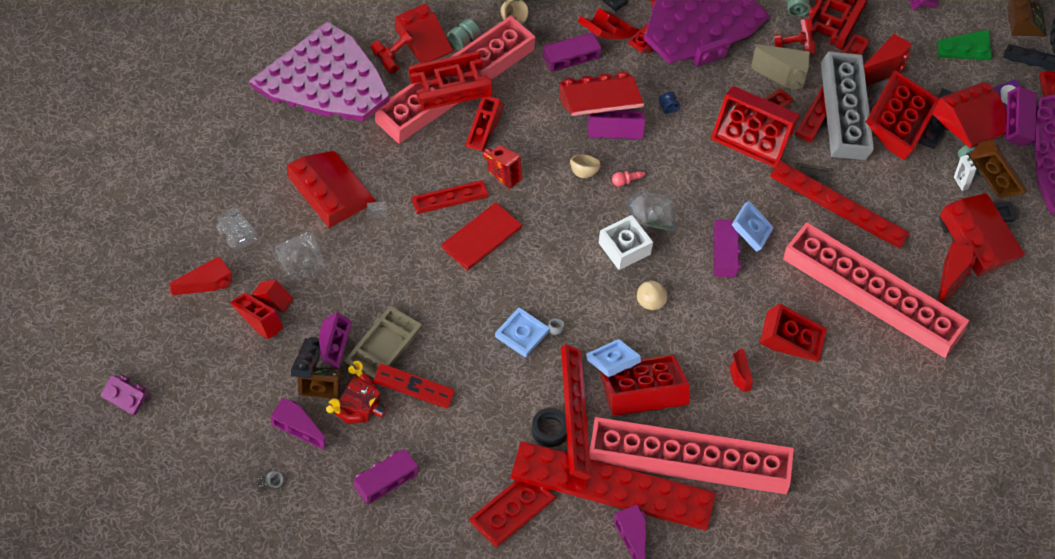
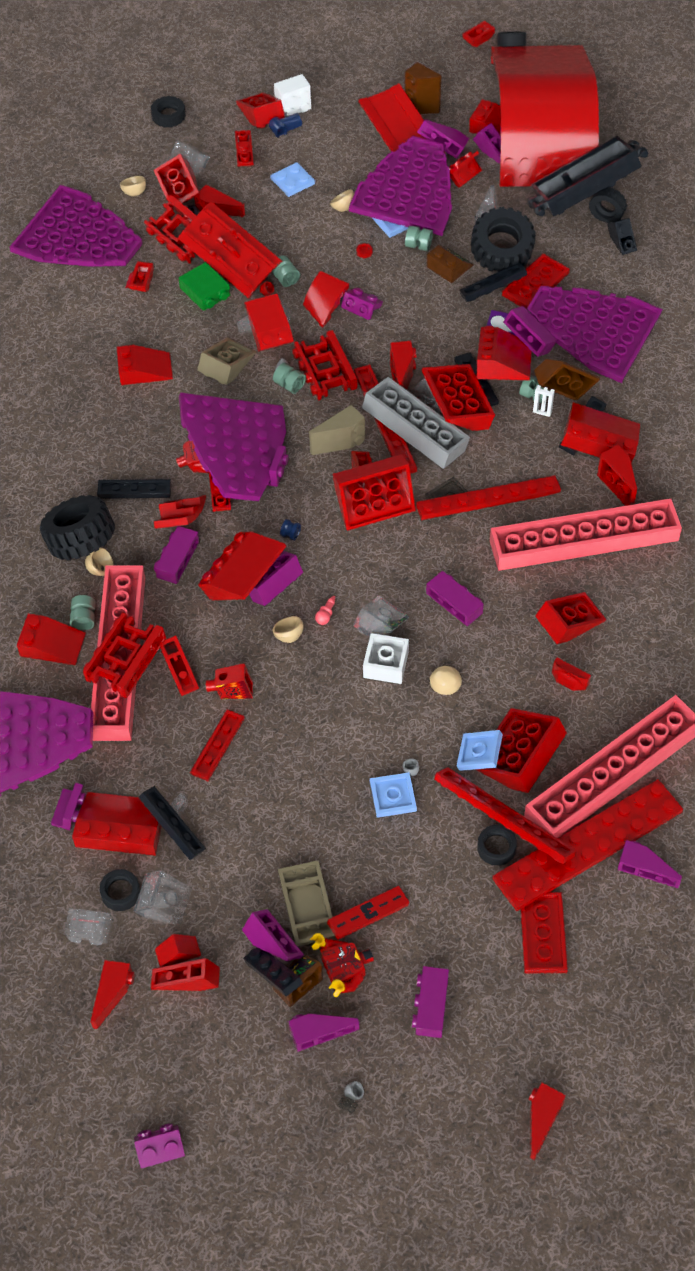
camera: 40 degrees left, 0 degrees up
(277, 214) = (116, 875): none -> black tyre
(310, 146) = (67, 806): none -> magenta bracket
(357, 214) = (172, 822): none -> black plate
(388, 53) = (42, 680): red bar -> none
(481, 236) = (276, 752): red tile -> none
(752, 226) = (456, 565): light blue plate -> none
(804, 37) = (326, 400): red bar -> none
(966, 46) = (435, 314): green wing -> none

